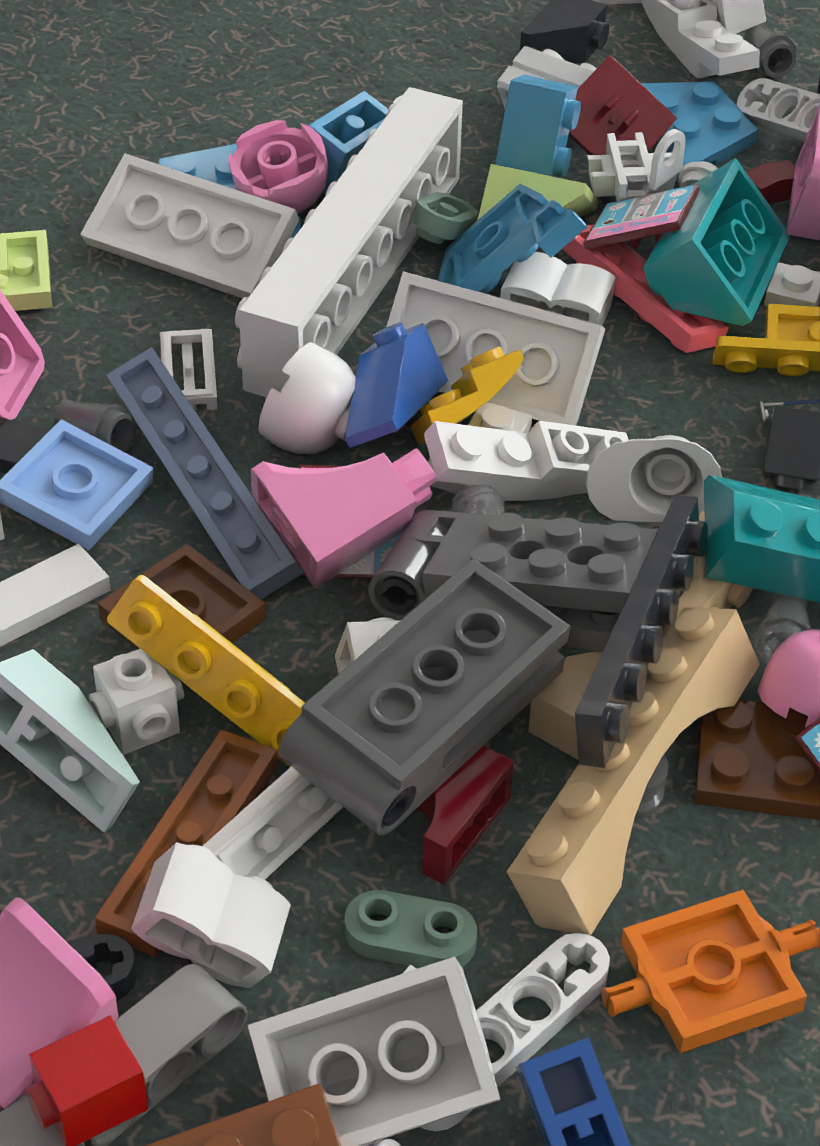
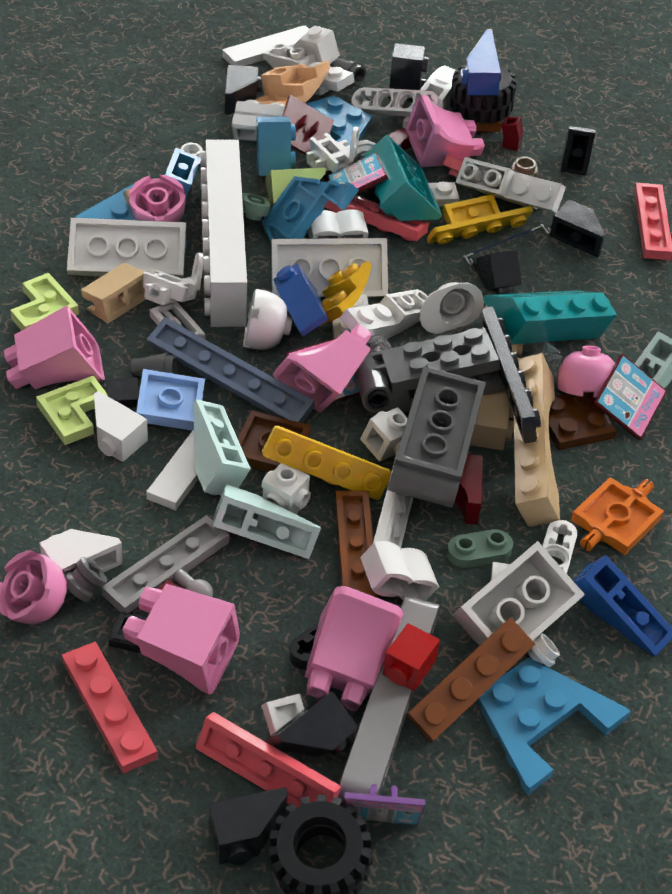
camera: 30 degrees left, 0 degrees up
(73, 584) = (217, 449): none -> light aqua slope
(127, 290) = (115, 292): none -> tan hinge
(202, 303) = (166, 288): none -> white piece
(652, 43) = (292, 80): none -> light nougat slope

